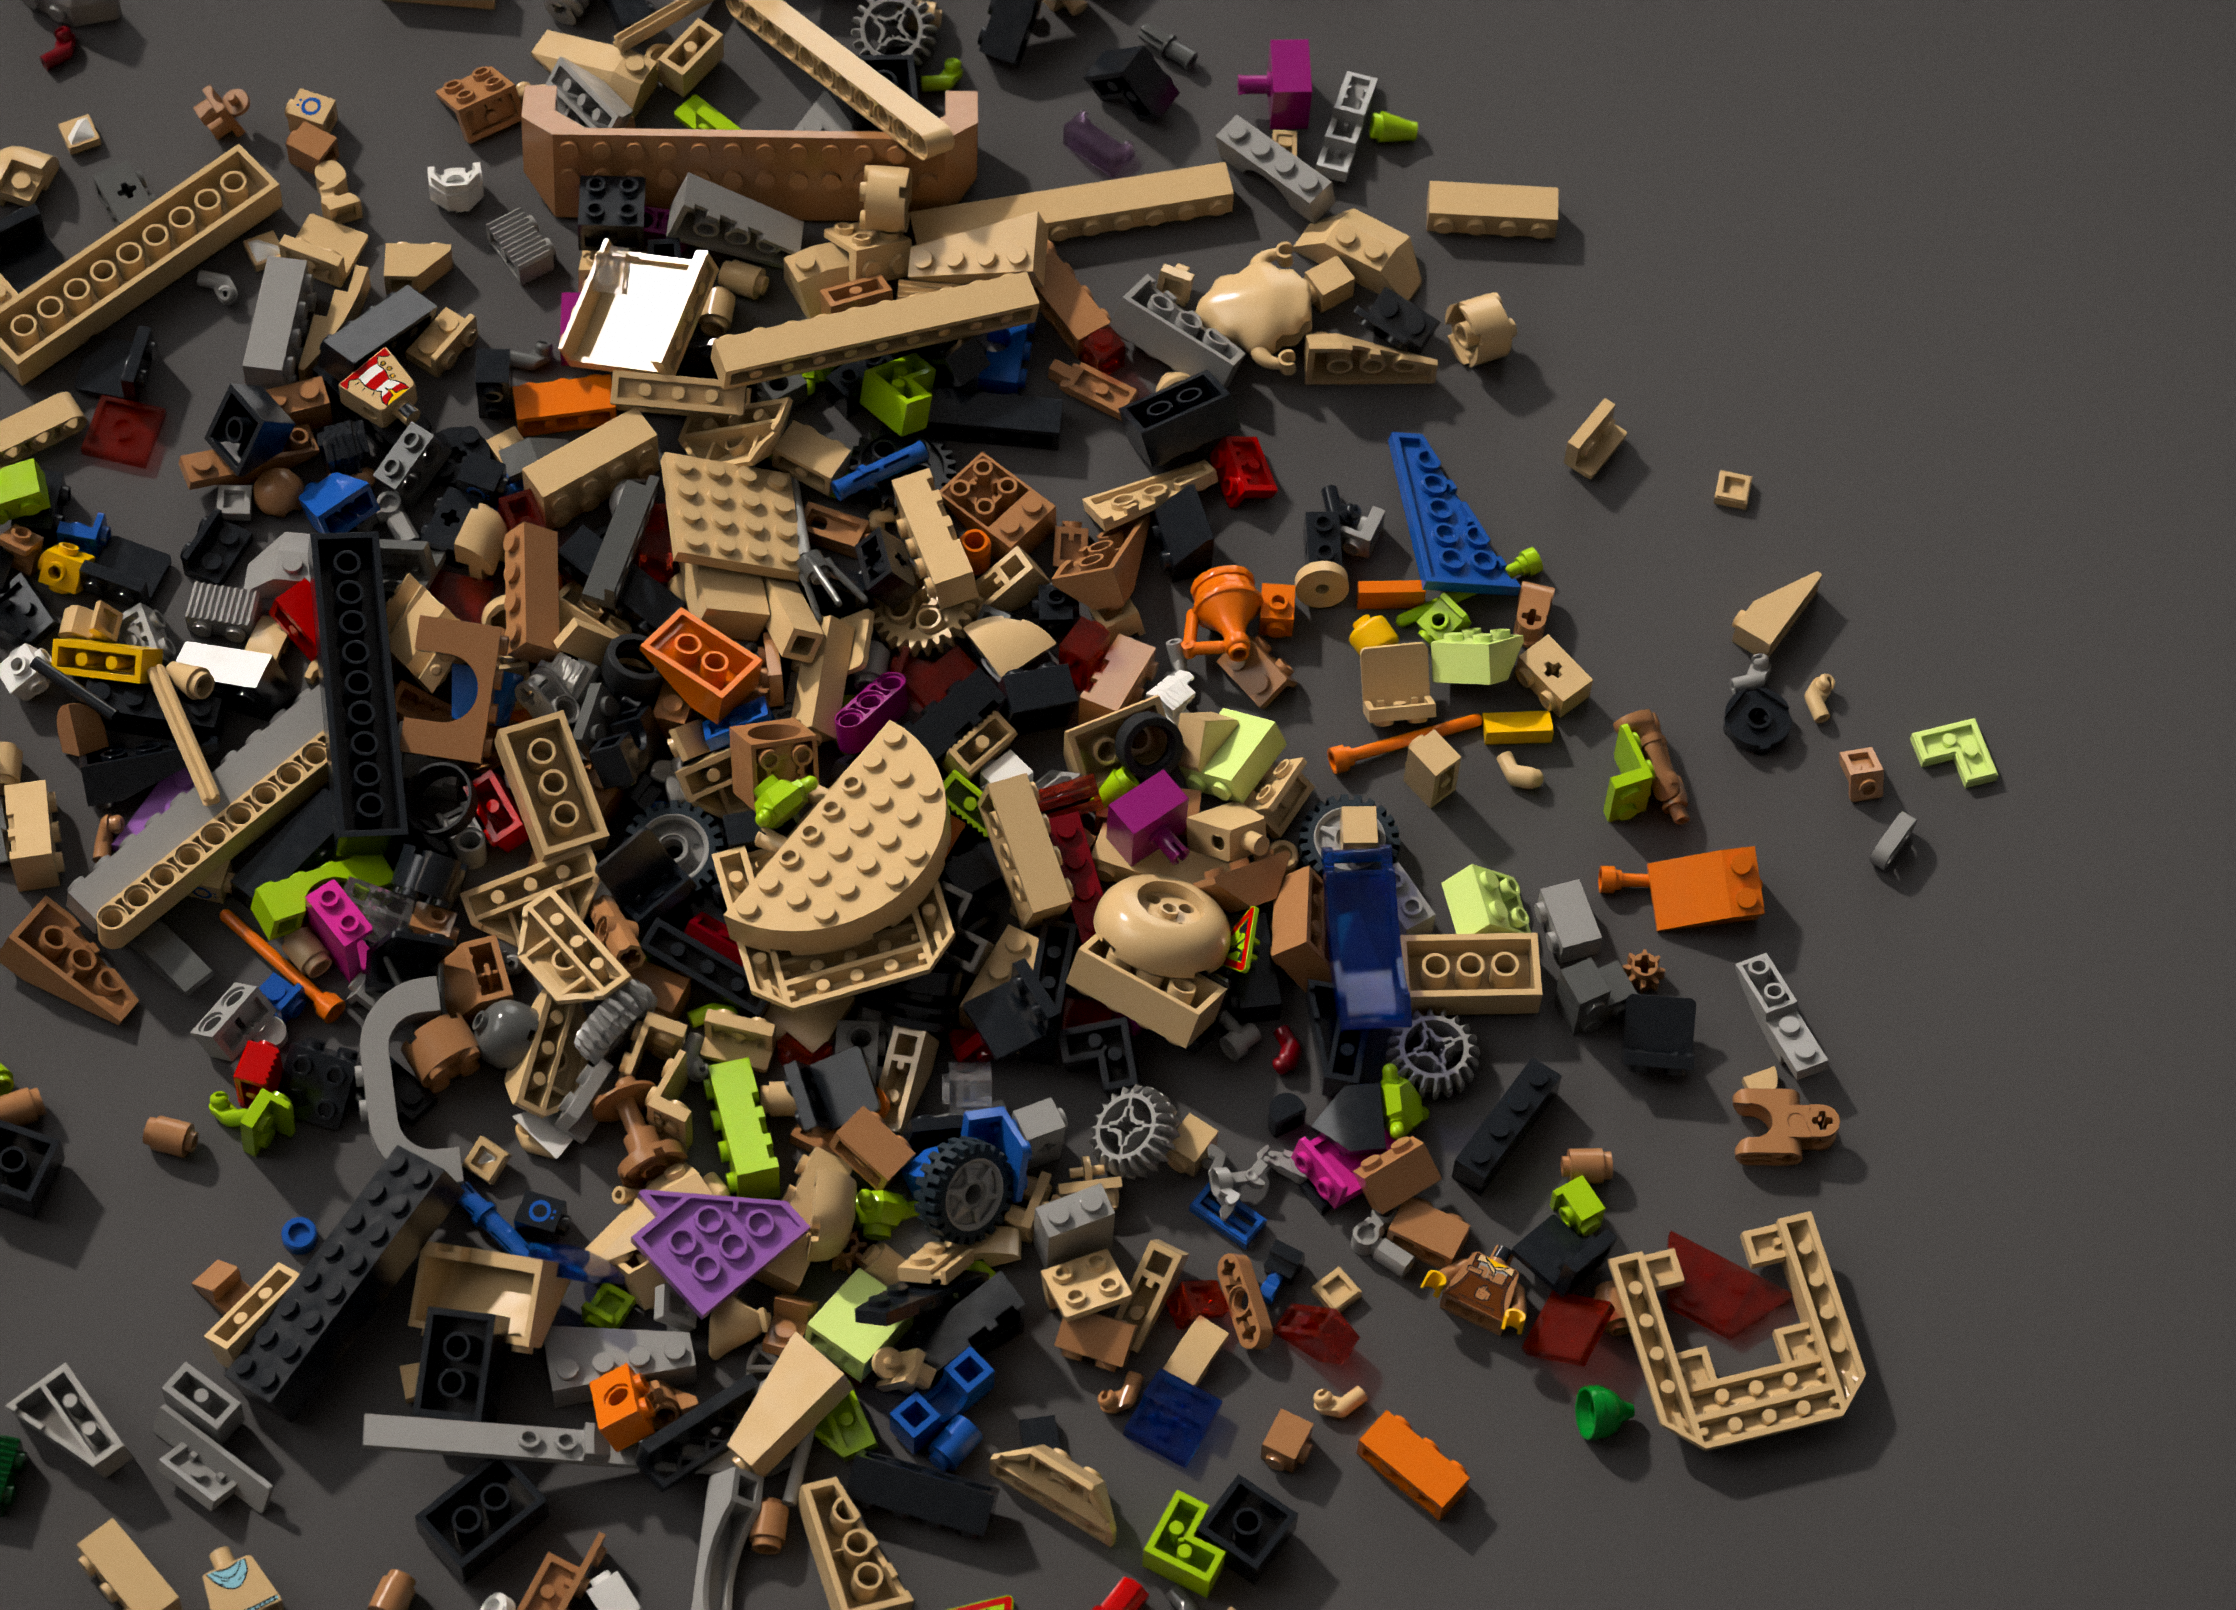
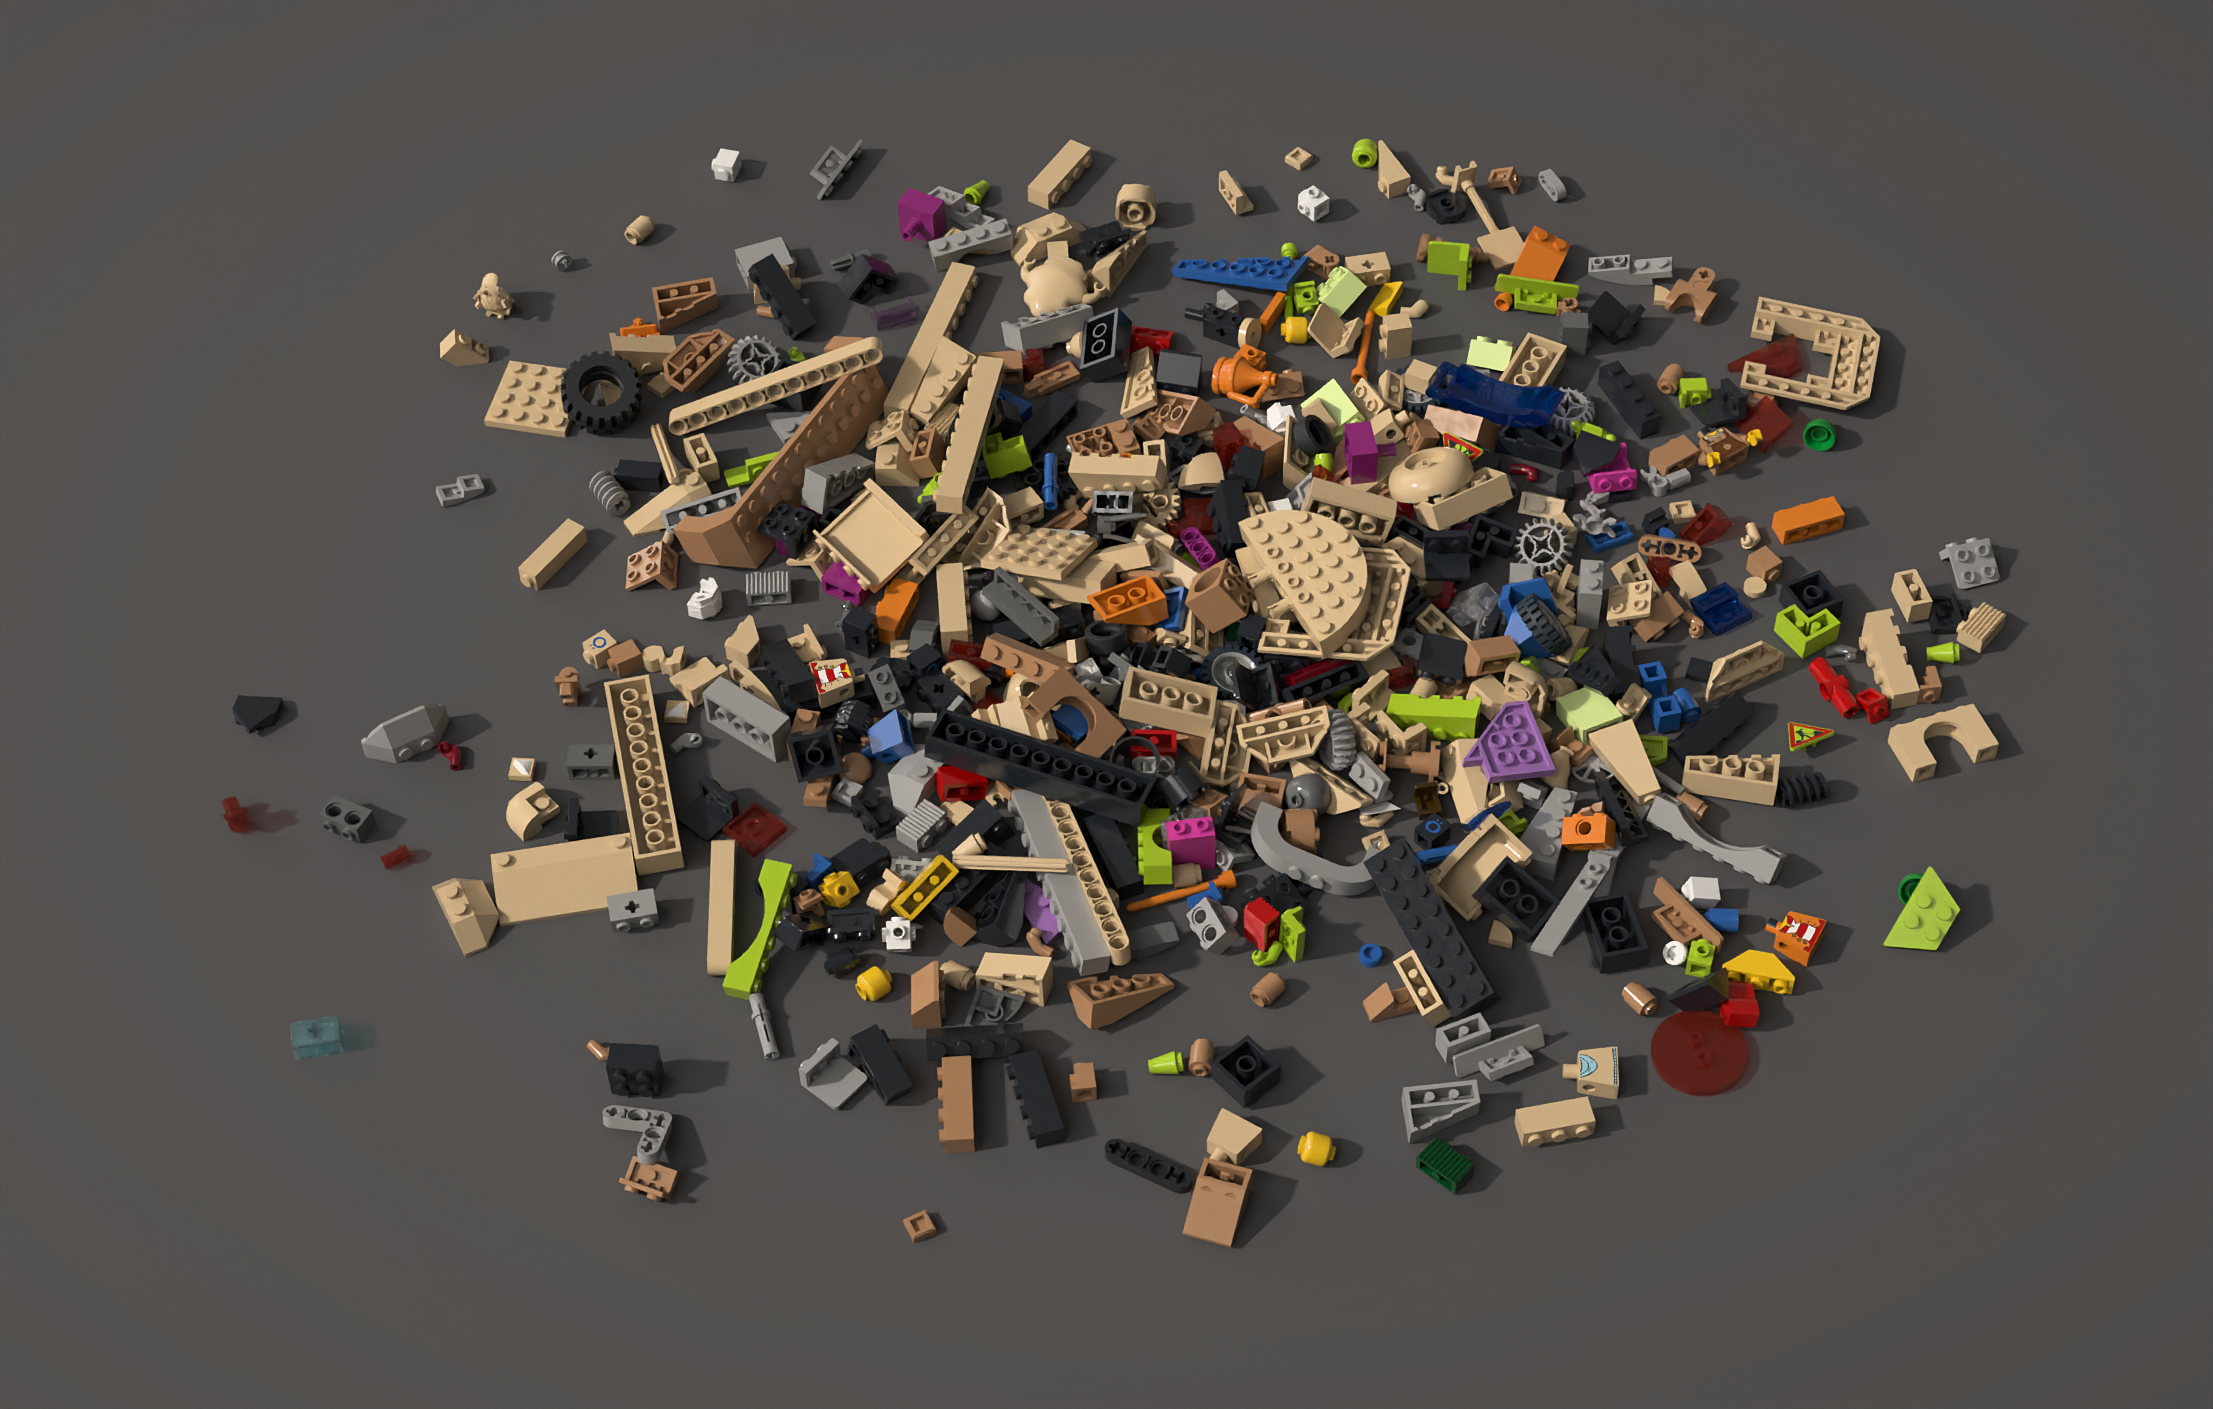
camera: 55 degrees left, 10 degrees down
(74, 689) = (937, 907): black bar -> none
(592, 1188) = (1426, 800): none -> dark brown bracket
(613, 270) = (837, 536): clear bracket -> none
(781, 799) = (1257, 592): lime rock -> none
(886, 198) = (878, 400): tan brick -> none
(935, 1262) = (1580, 659): tan plate -> none
(1177, 281) = (1010, 314): tan tile -> none
(1234, 1099) = (1541, 505): none -> tan panel
(1243, 1447) = (1754, 587): none -> tan tile
(1313, 809) = (1391, 389): none -> tan slope
(1397, 1174) = (1639, 447): medium nougat brick -> none
(1568, 921) = (1516, 324): light grey brick -> none
(1639, 546) = (1313, 203): none -> white brick
(1639, 915) = (1534, 293): none -> lime bracket
(1729, 824) = (1500, 244): none -> tan piece
(1790, 565) = (1365, 153): none -> lime head
(1959, 743) = (1510, 138): yellowish green tile -> none

